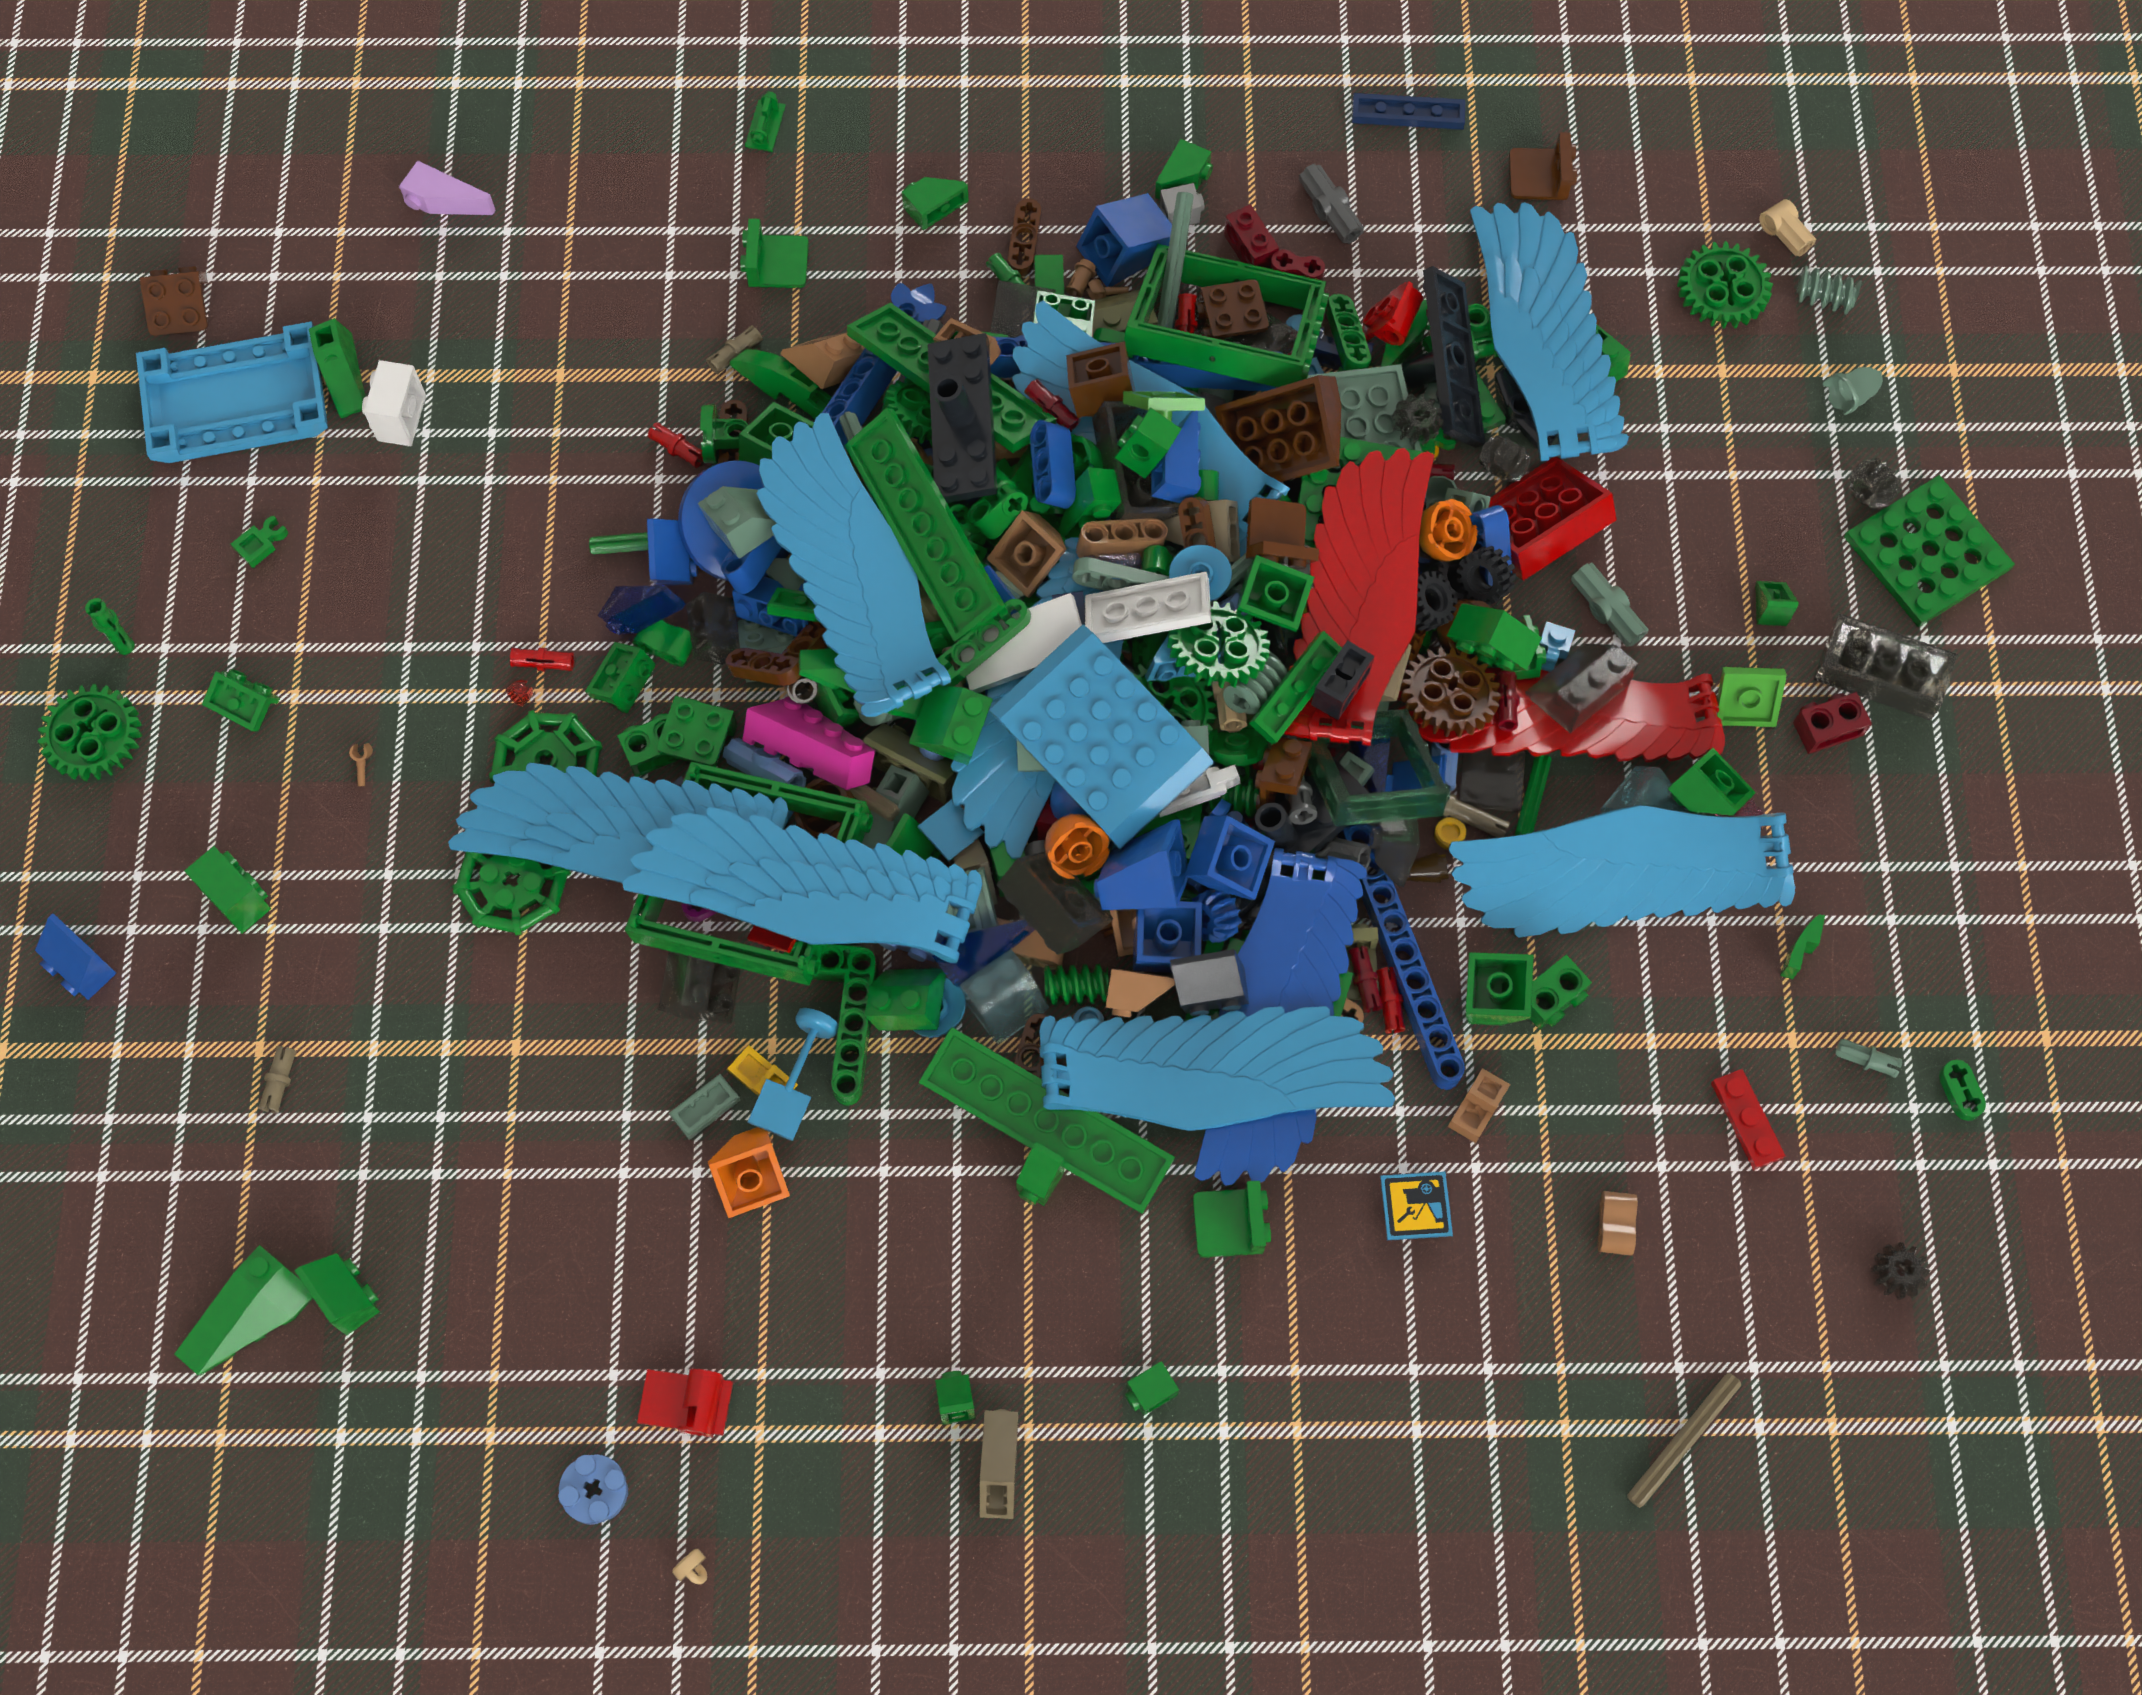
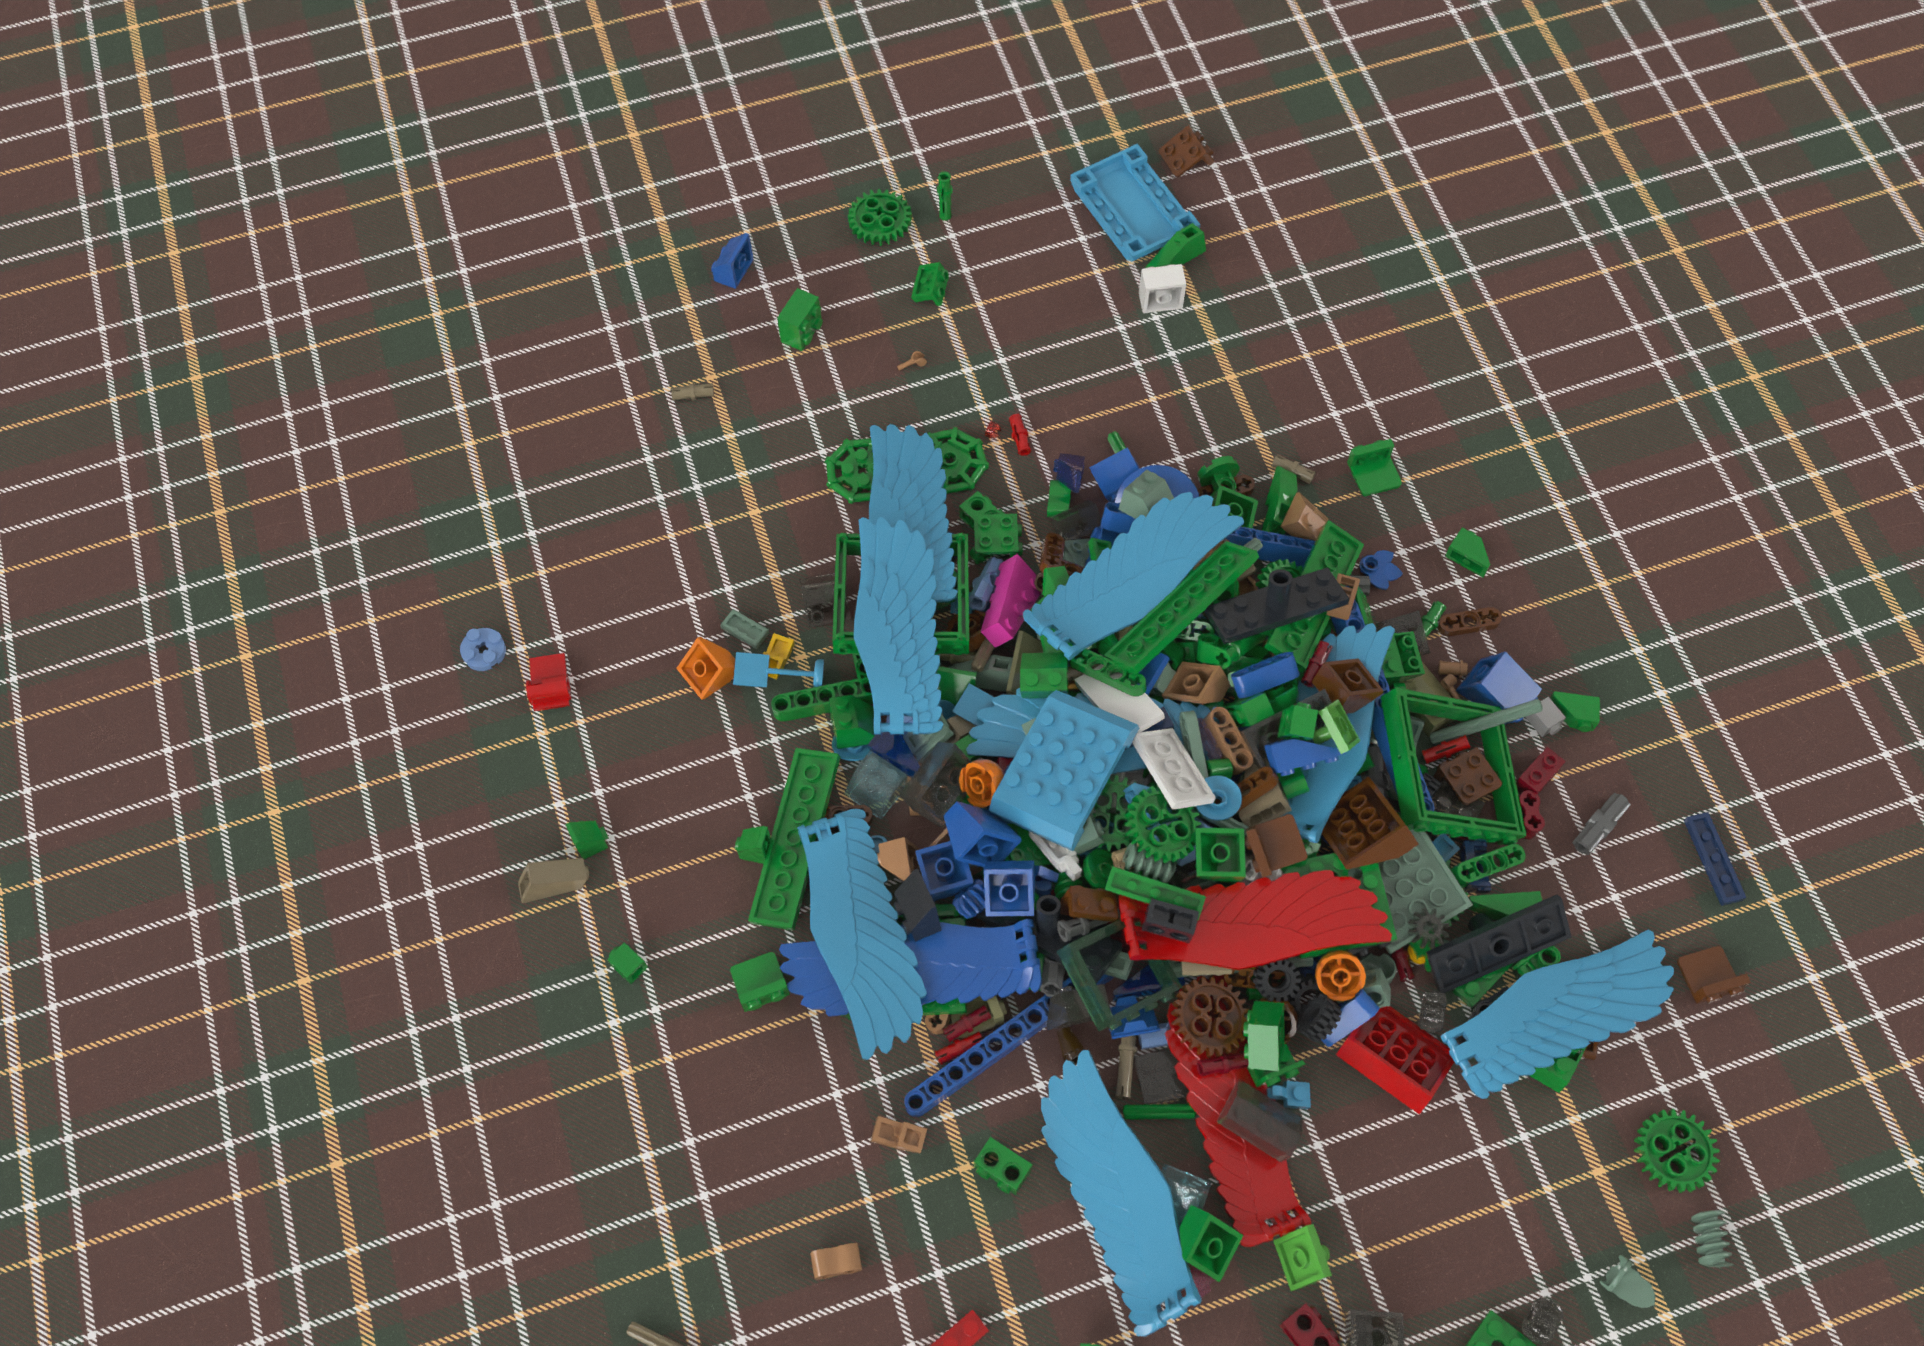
camera: 75 degrees right, 5 degrees down
(248, 1307) = (549, 427): green wedge -> none
(257, 544) = (1037, 254): green plate -> none
(339, 1292) = (565, 466): green slope -> none
(443, 194) = (1329, 262): lavender slope -> none
(621, 676) = (1024, 483): green bracket -> none
(676, 444) = (1207, 454): red pin -> none
(690, 1563) = (446, 716): tan tile -> none
(765, 123) = (1479, 430): green hinge -> none
(1049, 272) = (1443, 647): green slope -> none
(1076, 984) = (896, 824): green piece -> none
(1393, 315) = (1516, 891): red piece -> none
(1416, 1205) = (806, 1107): piece -> none
(1449, 830) = (1107, 1057): yellow tile -> none
(1499, 988) = (987, 1117): green slope -> none
(1609, 604) = (1343, 1128): sand green piece -> none
(1774, 603) = (1400, 1261): green slope -> none
(1784, 222) = (1760, 1188): tan piece -> none

